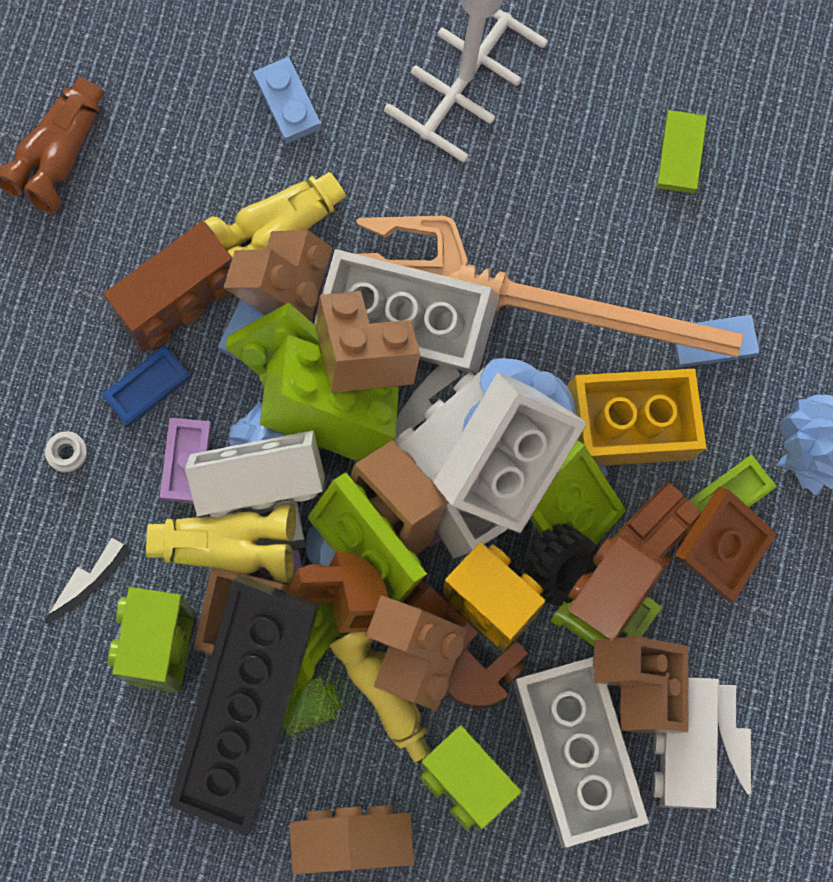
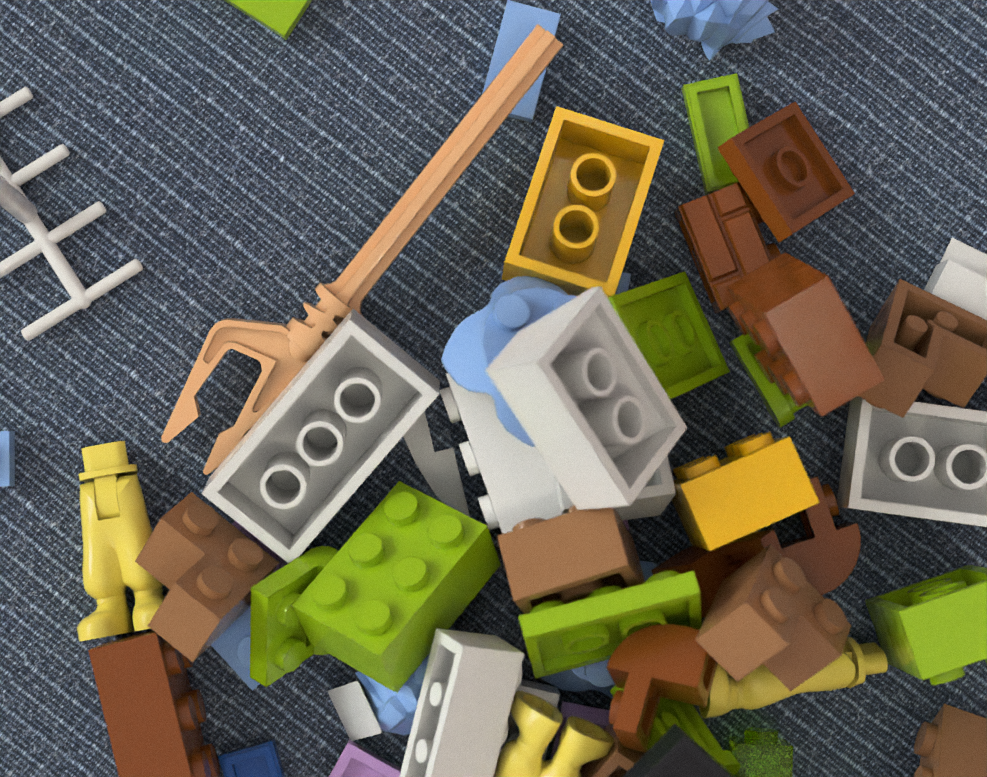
camera: 65 degrees left, 10 degrees up
(233, 414) = (354, 711): none -> white sticker
(363, 353) = (368, 525): medium nougat brick -> none
(560, 561) = (729, 389): black tyre -> none

